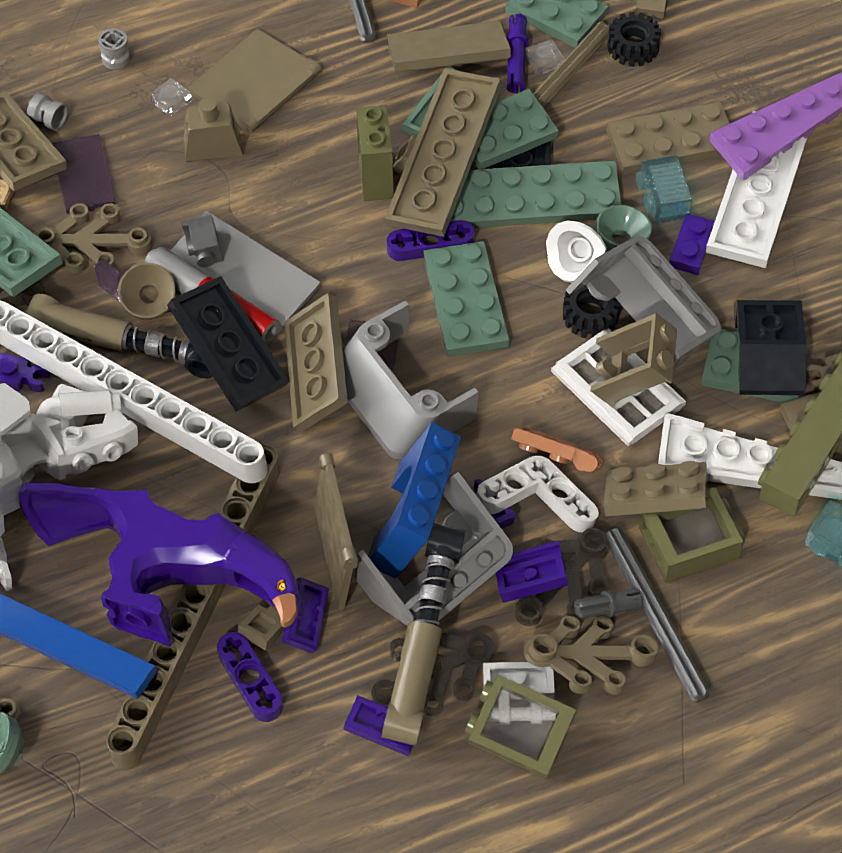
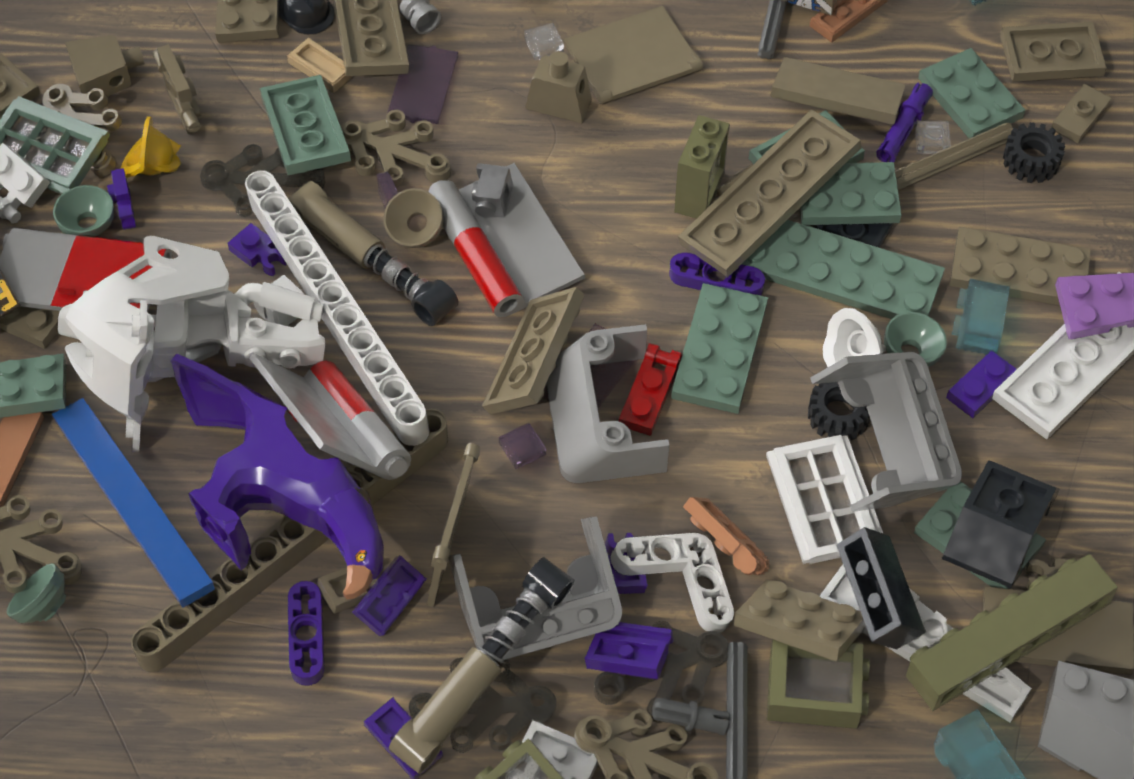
camera: 25 degrees right, 0 degrees up
(188, 481) = (337, 417): none -> light grey door
(228, 343) = (458, 299): black plate -> none
(346, 445) = (522, 445): none -> clear purple tile
(422, 481) = (545, 527): blue arch -> none
(427, 355) = (650, 390): none -> red plate
(644, 333) = (874, 469): dark tan window -> none
(707, 436) = (880, 588): none -> black brick

